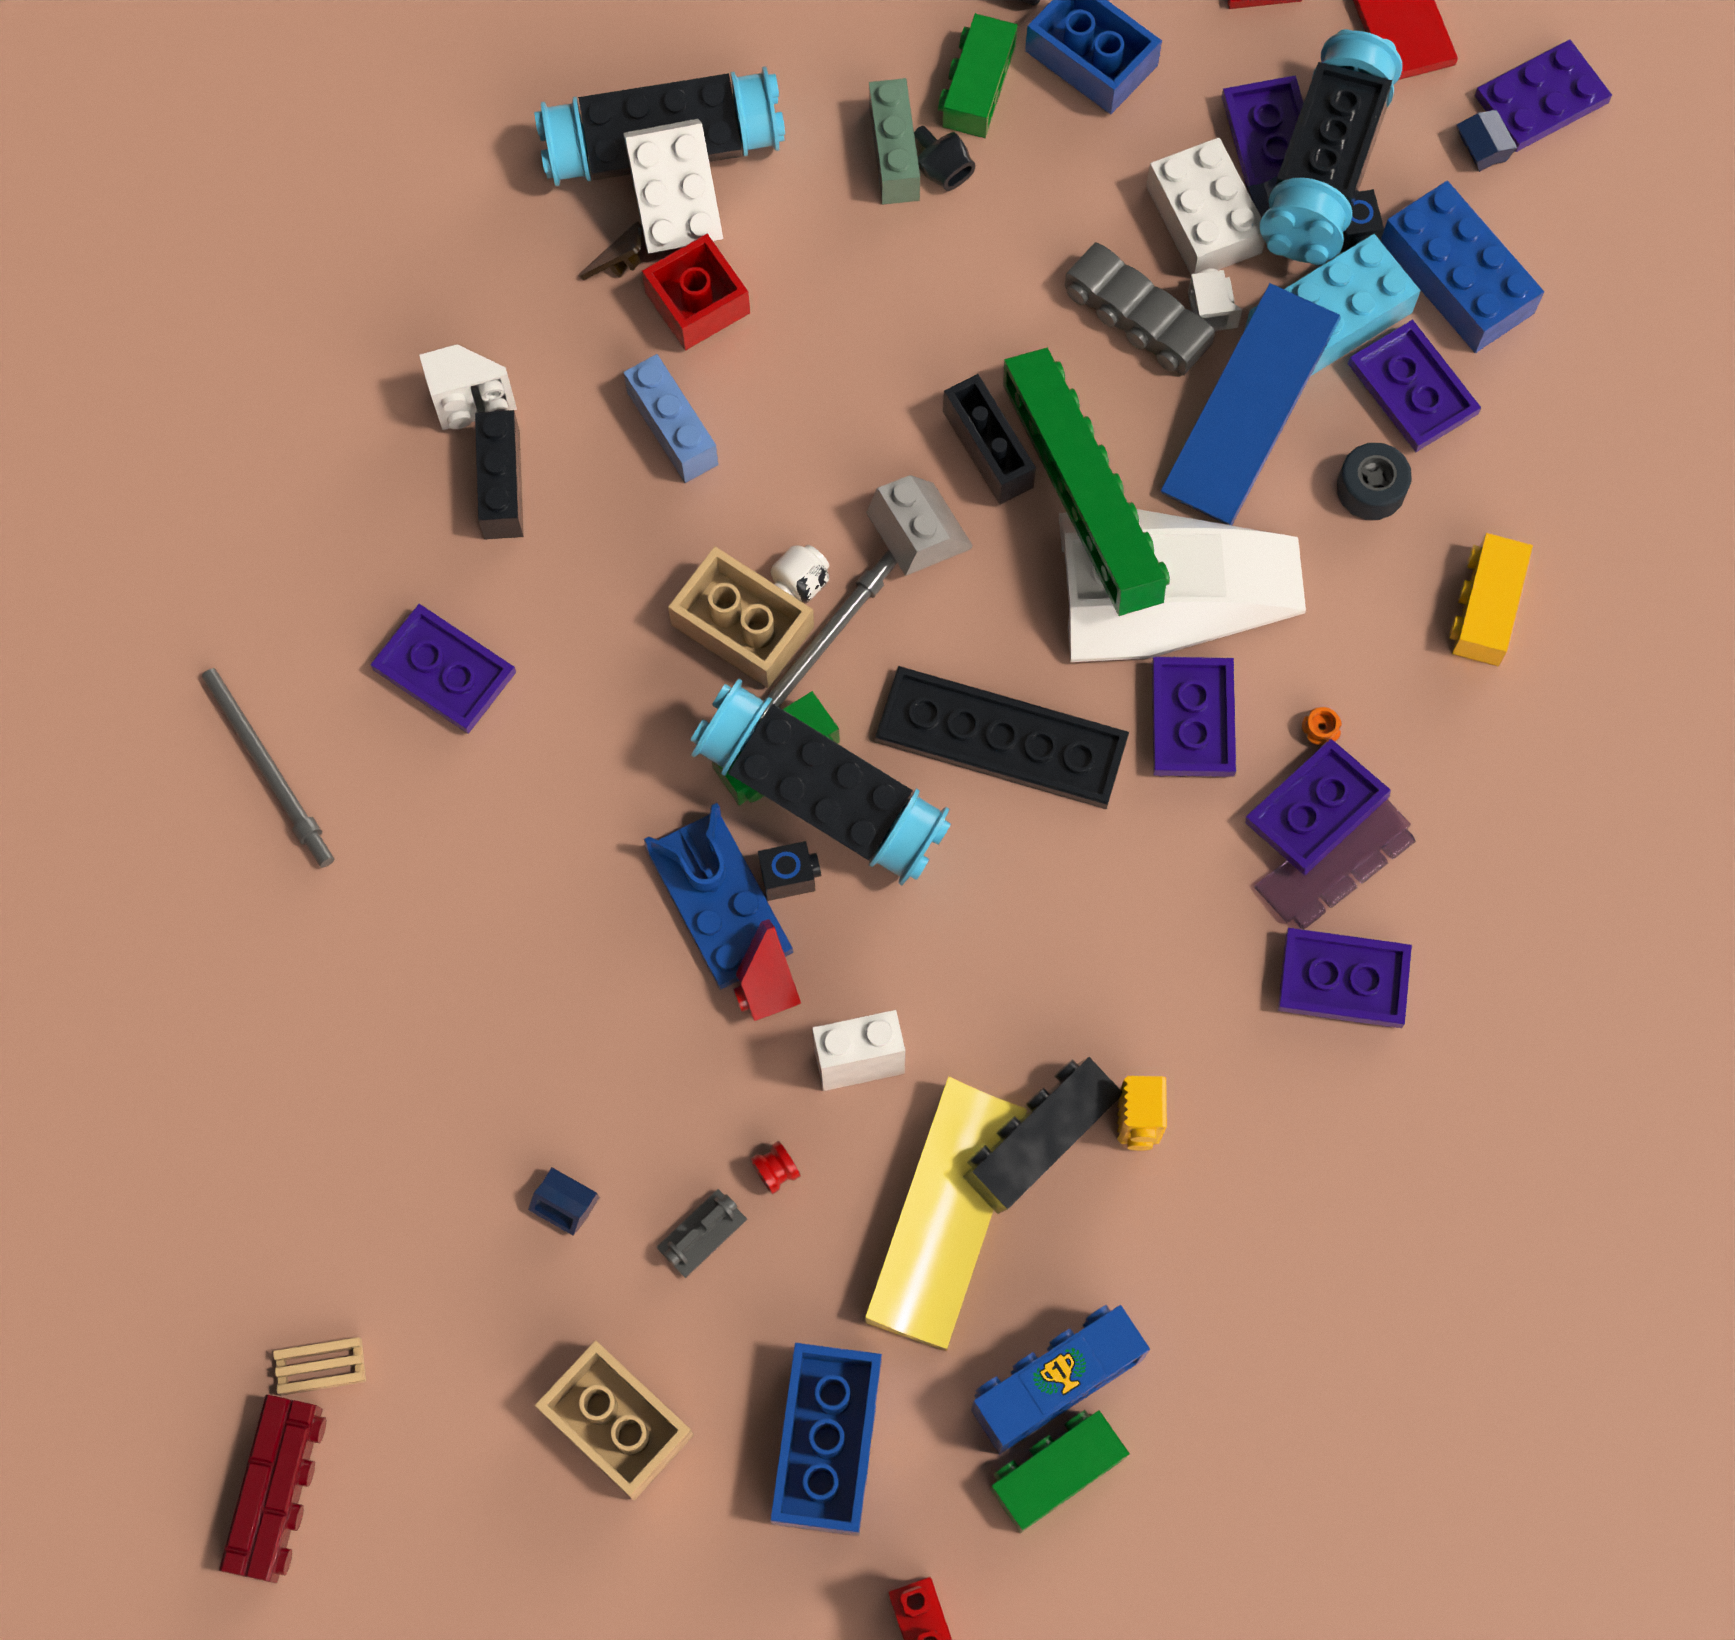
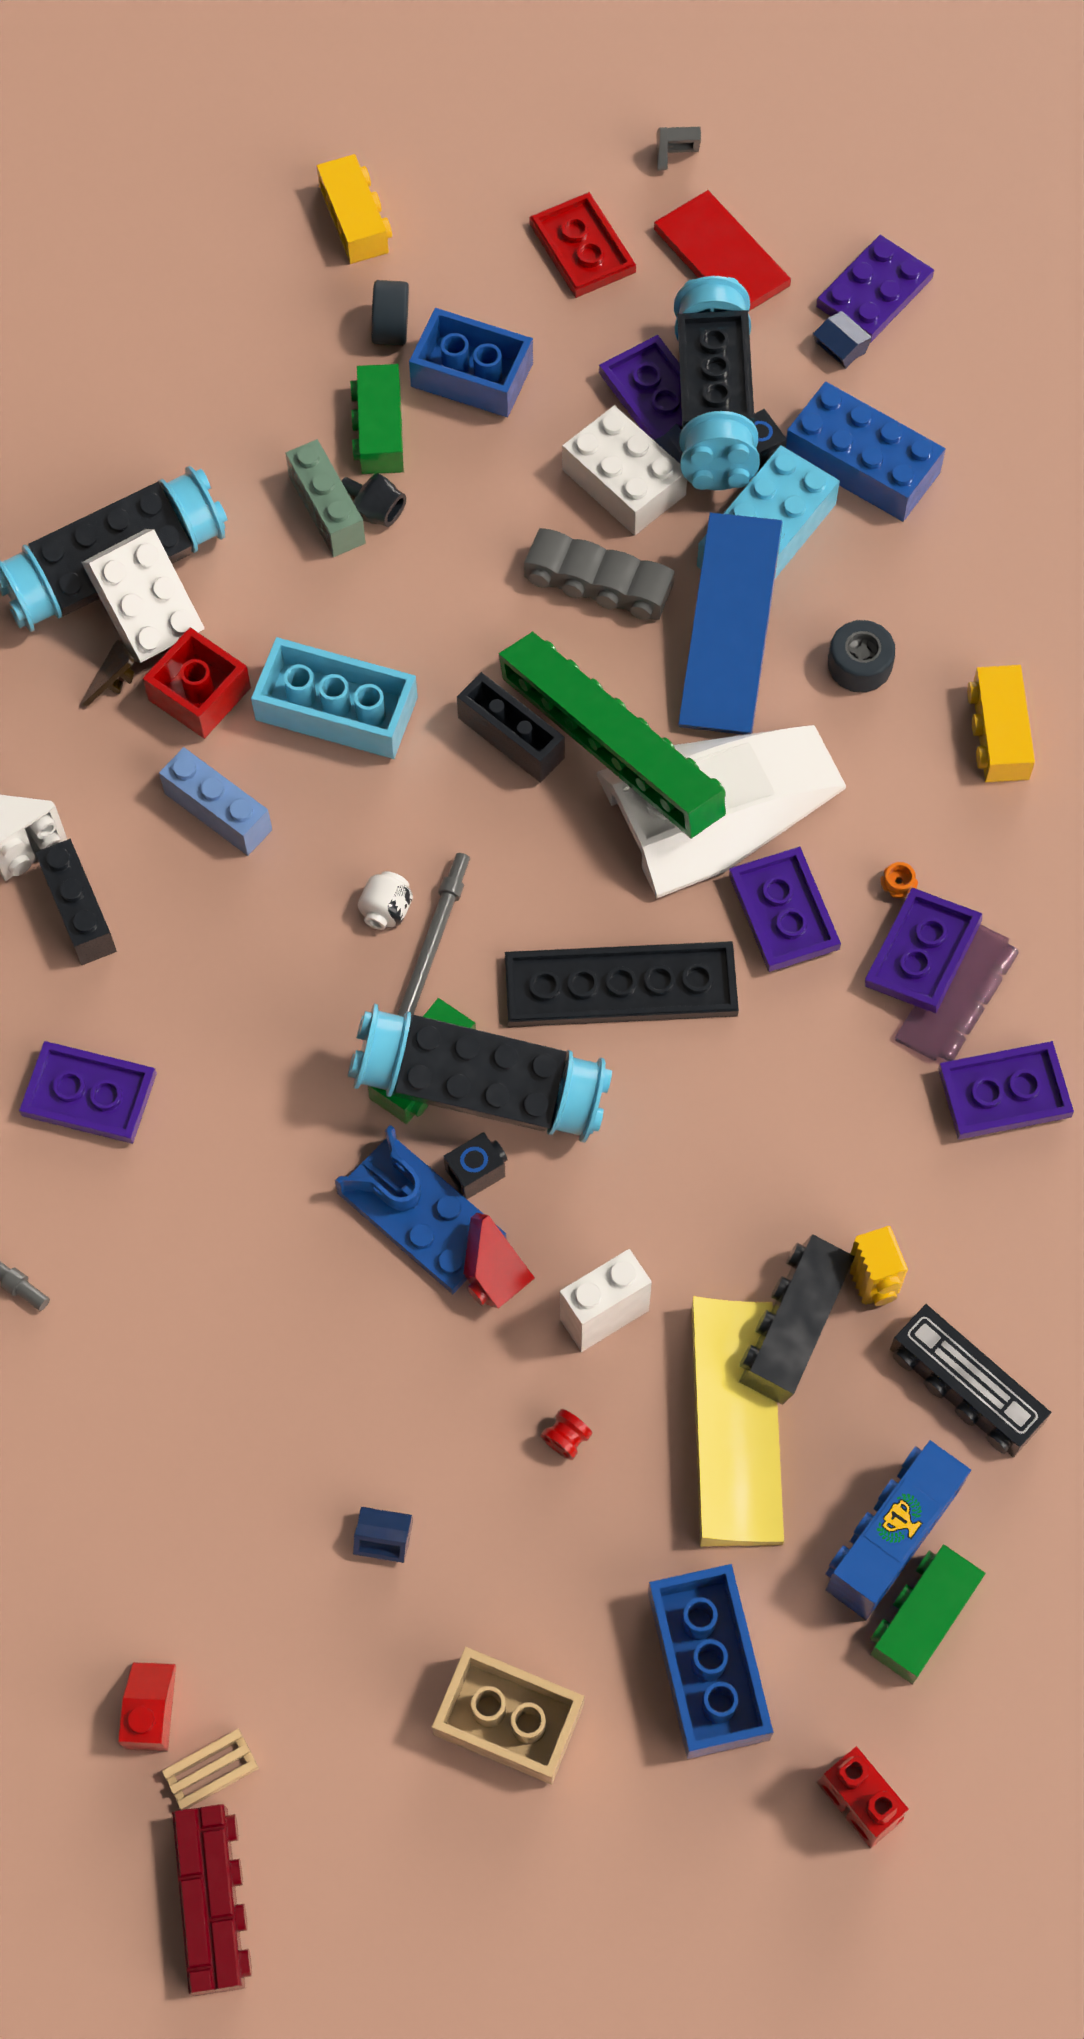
camera: 20 degrees left, 5 degrees down
(282, 1285) = (147, 1707): none -> red slope
(702, 1233) = (521, 1517): dark grey hinge -> none
(741, 617) = (347, 954): tan brick -> none
(825, 351) = (334, 697): none -> medium azure brick
(916, 524) = (473, 822): light grey slope -> none
(1191, 1256) = (969, 1381): none -> black brick
(1213, 299) = (660, 544): white window -> none
(1414, 385) = (863, 564): dark purple plate -> none

